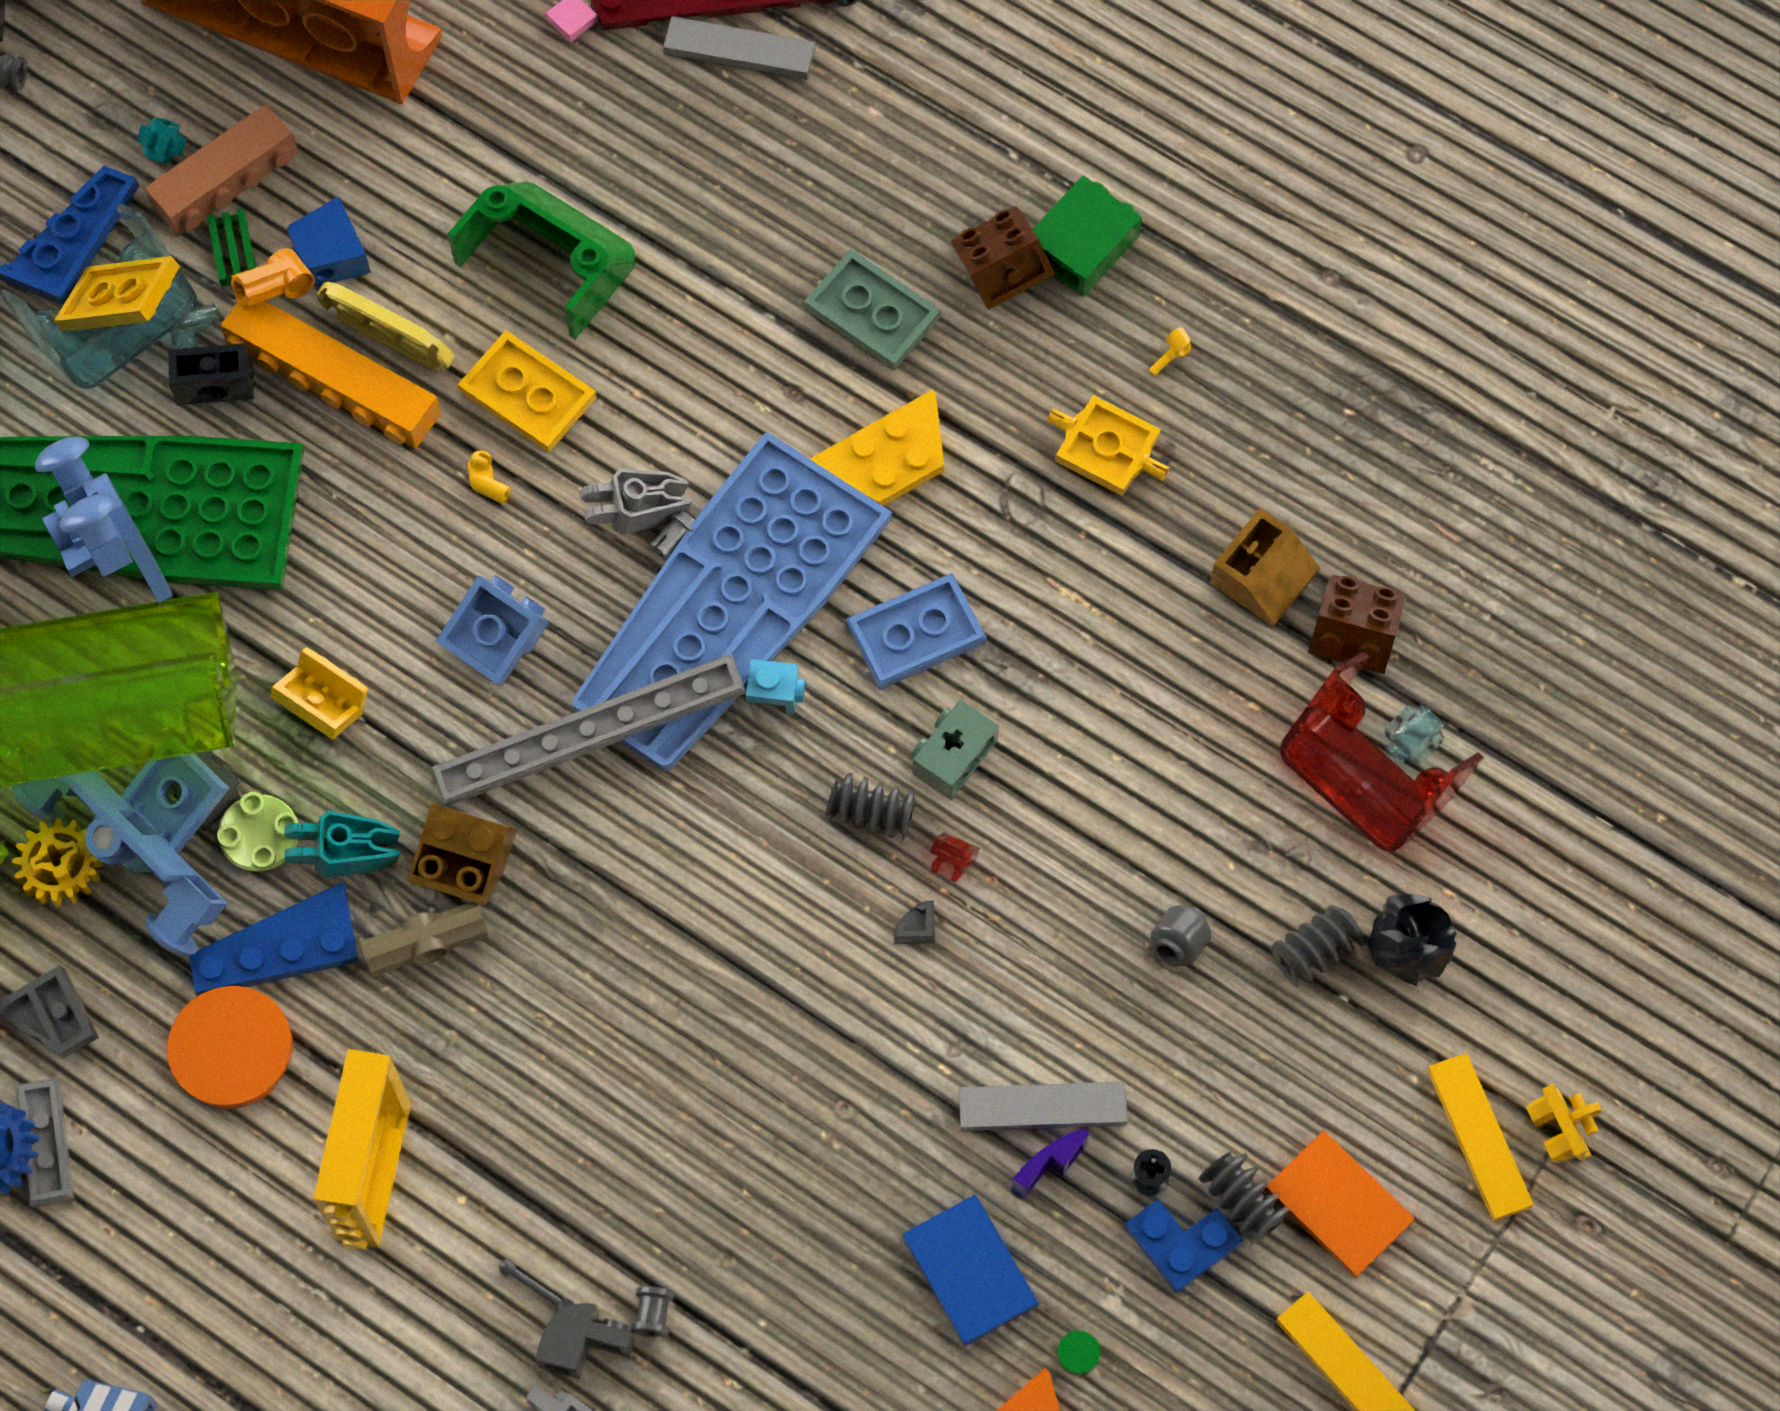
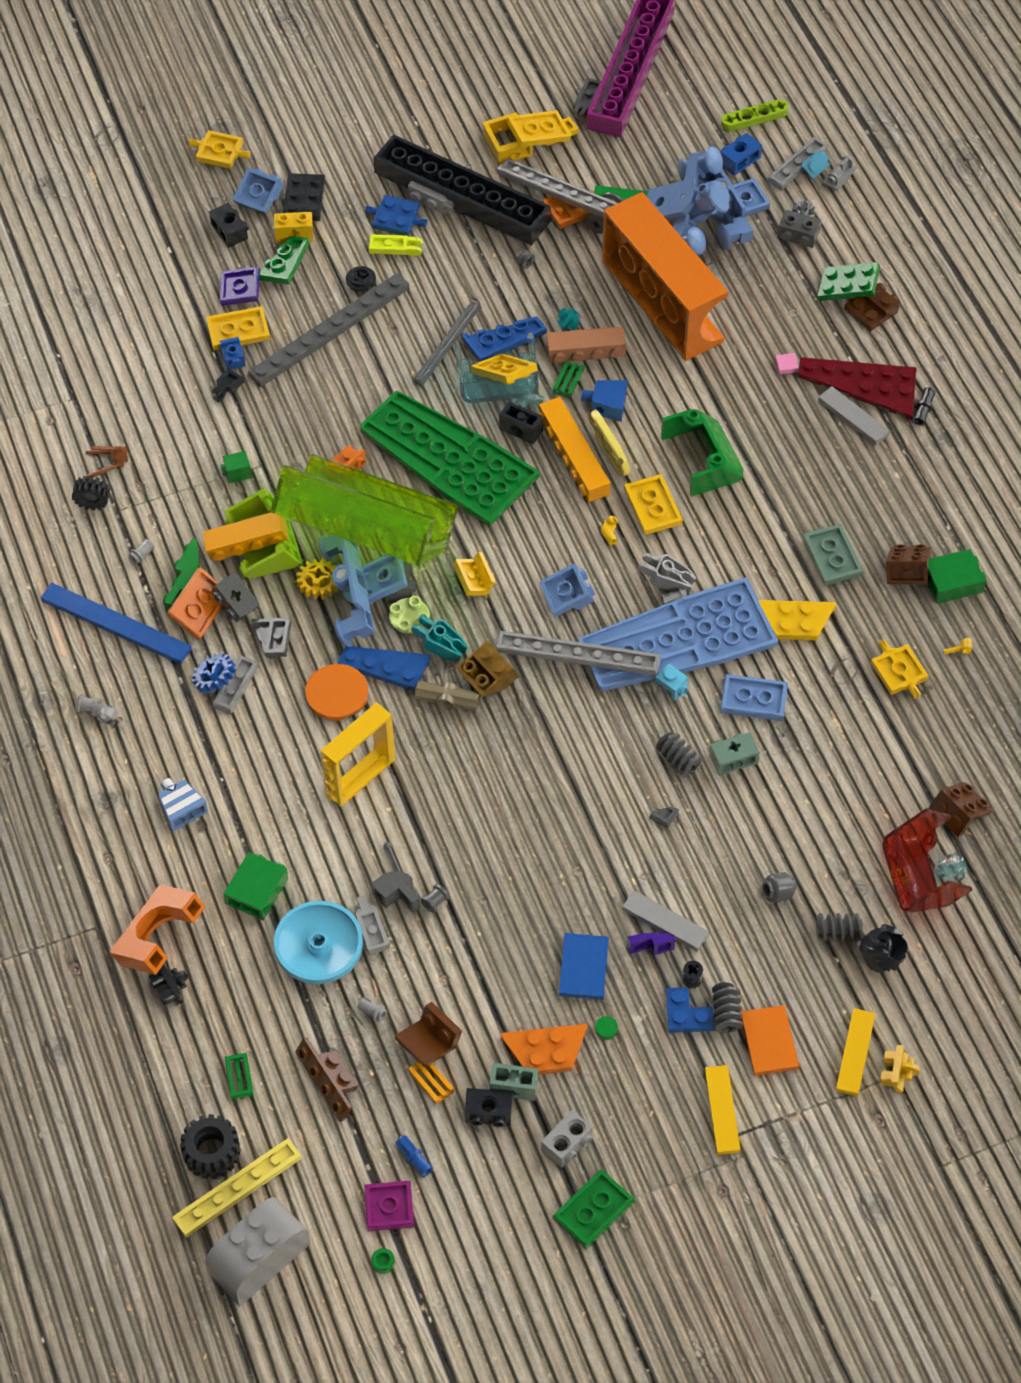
camera: 35 degrees right, 10 degrees down
(96, 521) = (427, 441): medium blue piece -> none
(280, 275) = (579, 397): light orange piece -> none
(955, 851) = (703, 795): clear red tile -> none
(1264, 568) = (933, 758): pearl gold slope -> none

